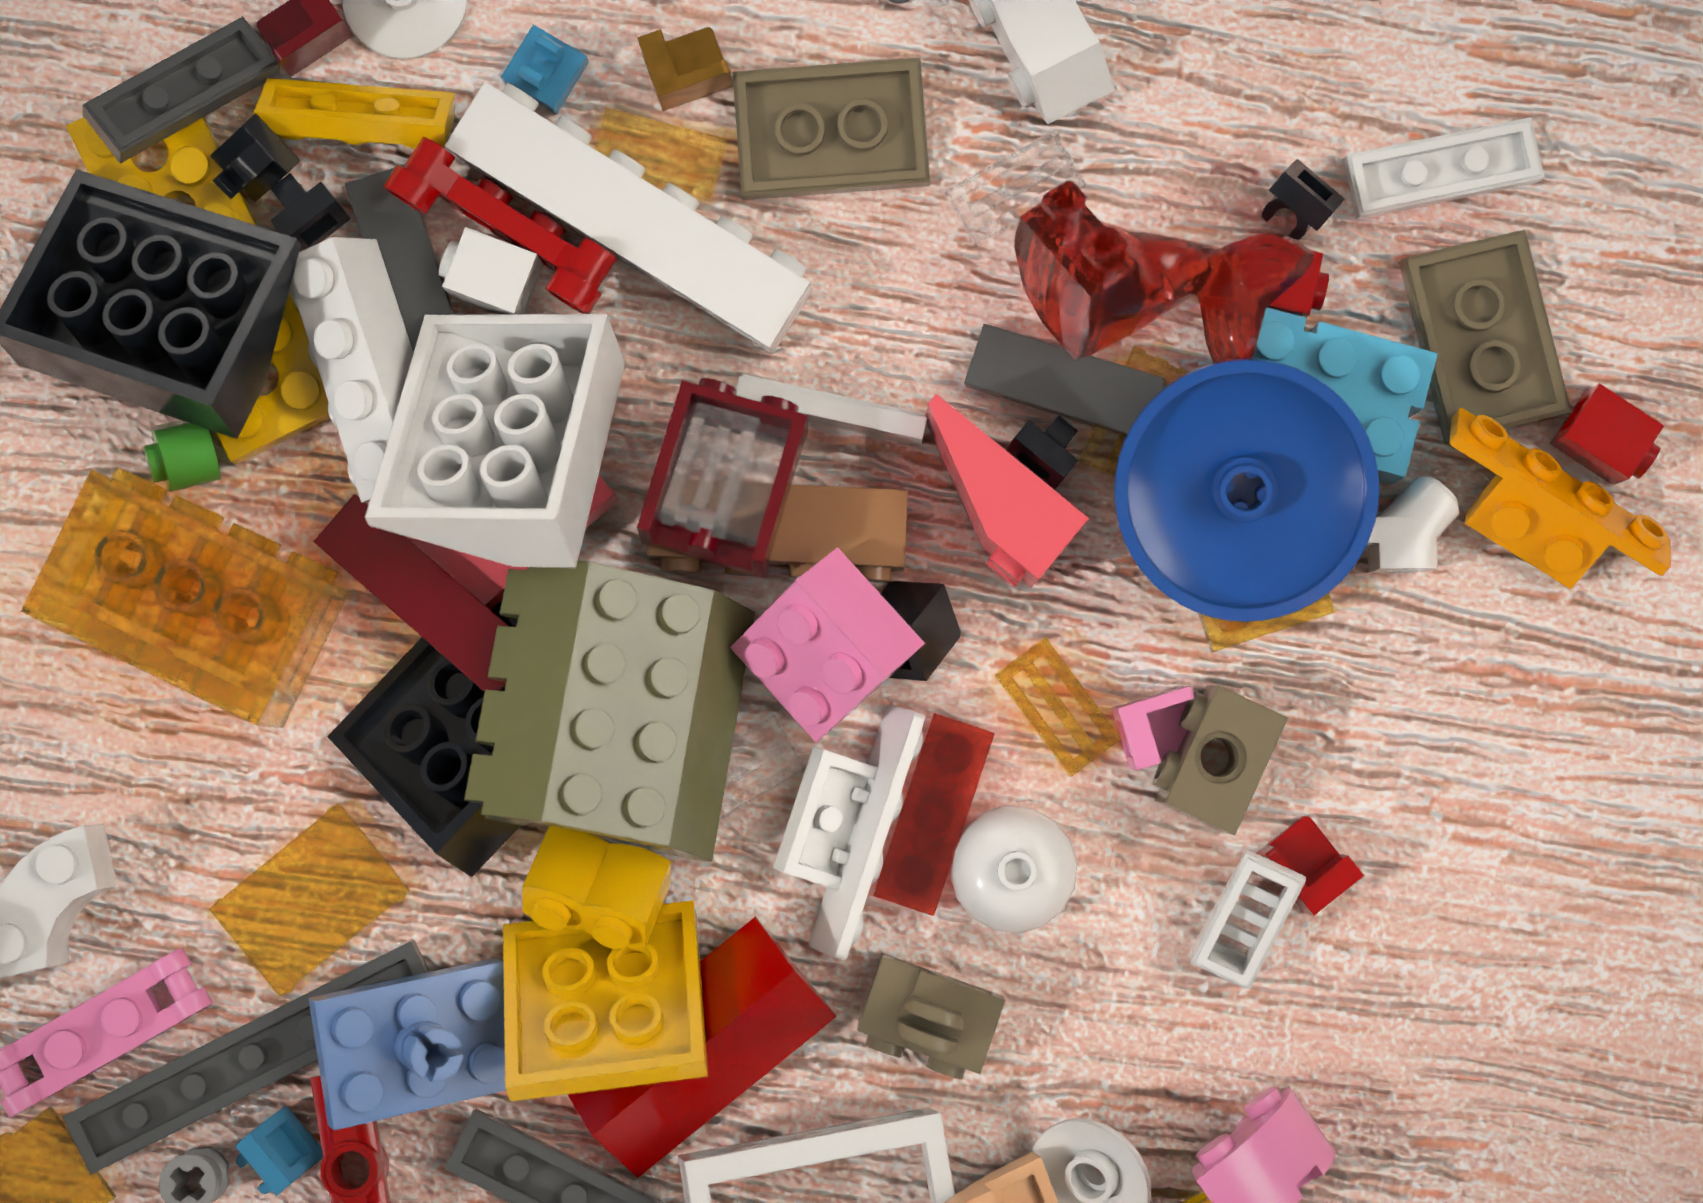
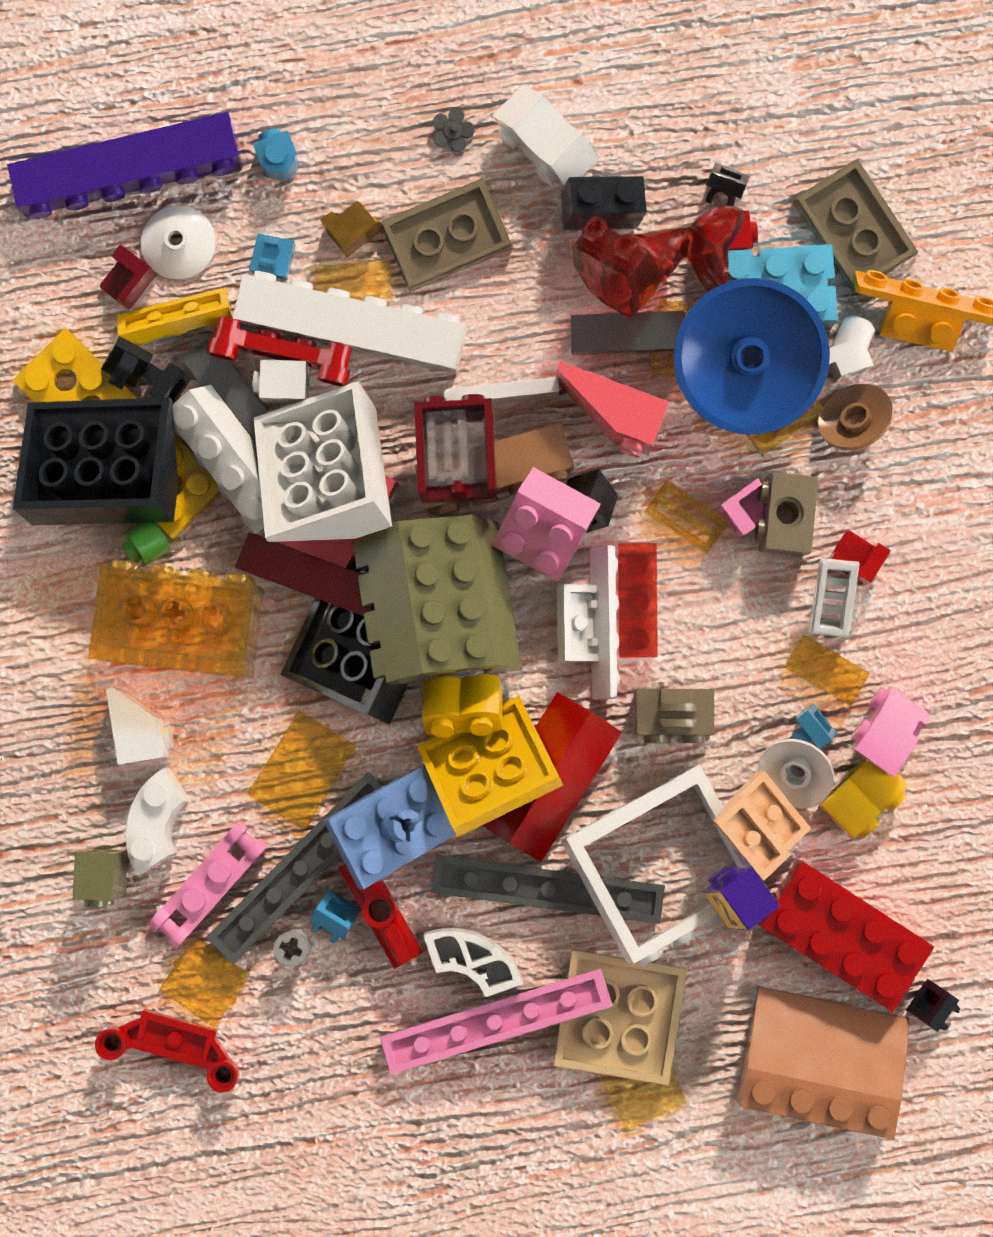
camera: 10 degrees left, 0 degrees up
(68, 746) = (136, 730): none -> white slope
(180, 89) = (71, 337): dark grey tile -> none
(1013, 869) = (693, 616): white cylinder -> none
(1045, 451) = (631, 373): black tile -> none
(1110, 163) = (613, 199): none -> black brick
(1144, 1114) = (814, 727): none -> dark azure tile
(1196, 1027) = (826, 670): none -> clear yellow tile
(1377, 621) = (853, 405): none -> medium nougat dish
(1443, 168) = (799, 139): white tile -> none
(1609, 436) = (944, 258): red brick -> none

